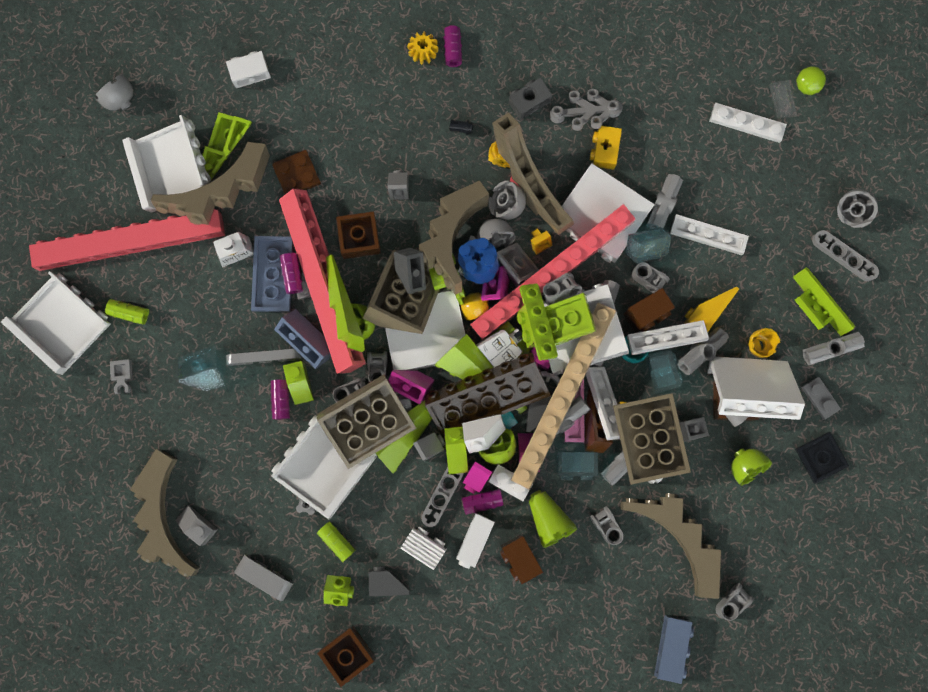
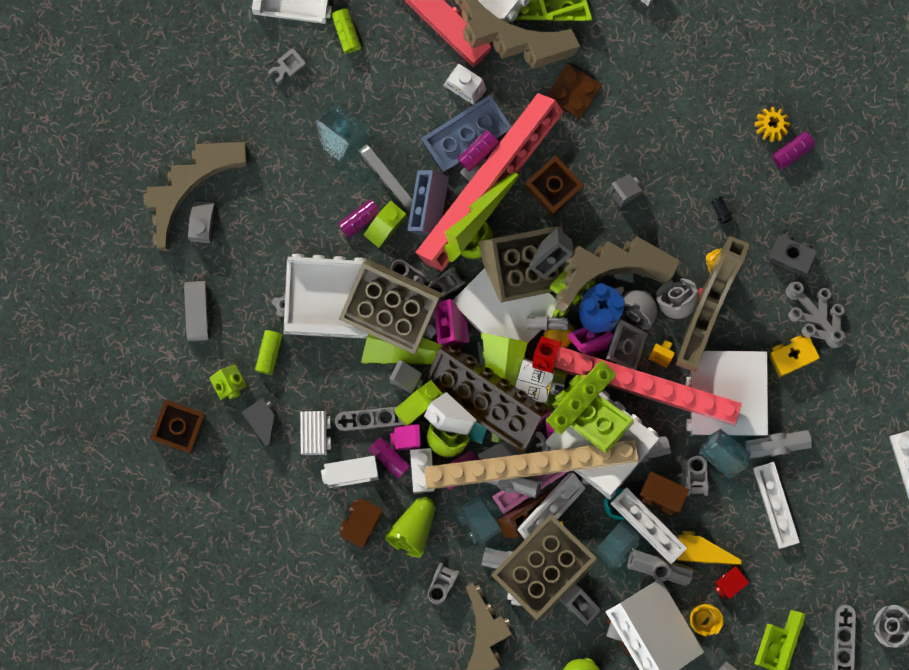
camera: 55 degrees right, 0 degrees up
(461, 309) = (547, 323): none -> light grey axle
(487, 325) = (546, 354): none -> red brick
(561, 288) = (626, 399): light grey piece -> none
(747, 306) = (730, 583): none -> red brick

